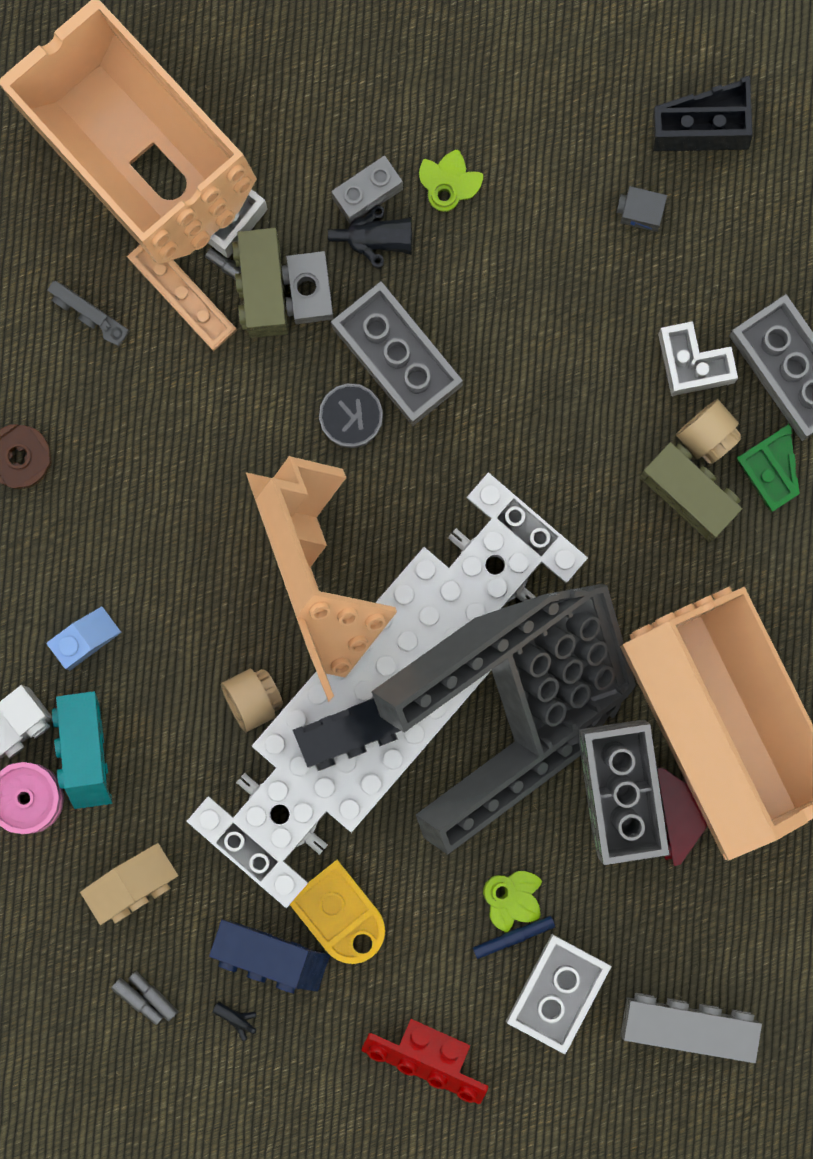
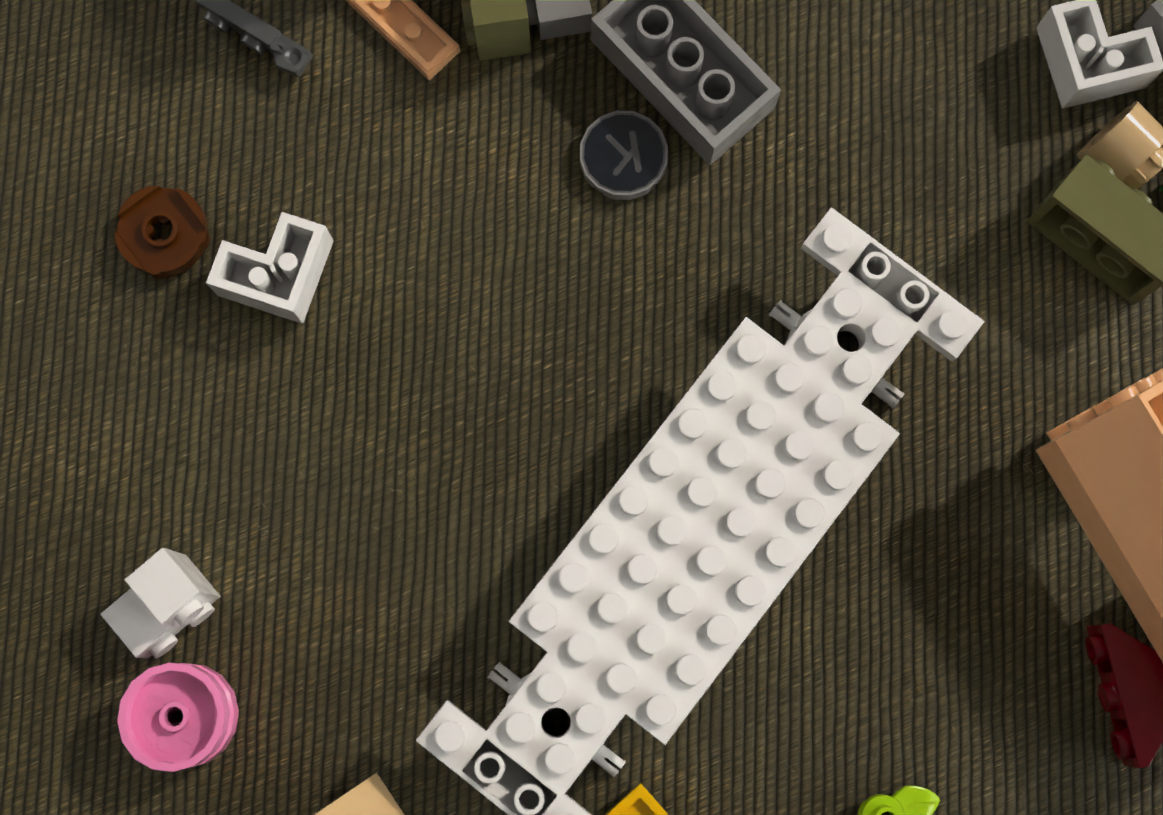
camera: 10 degrees left, 5 degrees down
(81, 750) = (259, 641): teal wedge -> none
(83, 638) = (258, 480): light blue slope -> none
(100, 499) = (280, 279): none -> white brick
(252, 698) = (505, 552): tan piece -> none
(332, 625) = (624, 421): light nougat panel -> none
(343, 734) = (655, 592): black wedge -> none
(555, 674) = (948, 503): dark grey wedge -> none
(623, 792) = (1063, 663): light grey brick -> none

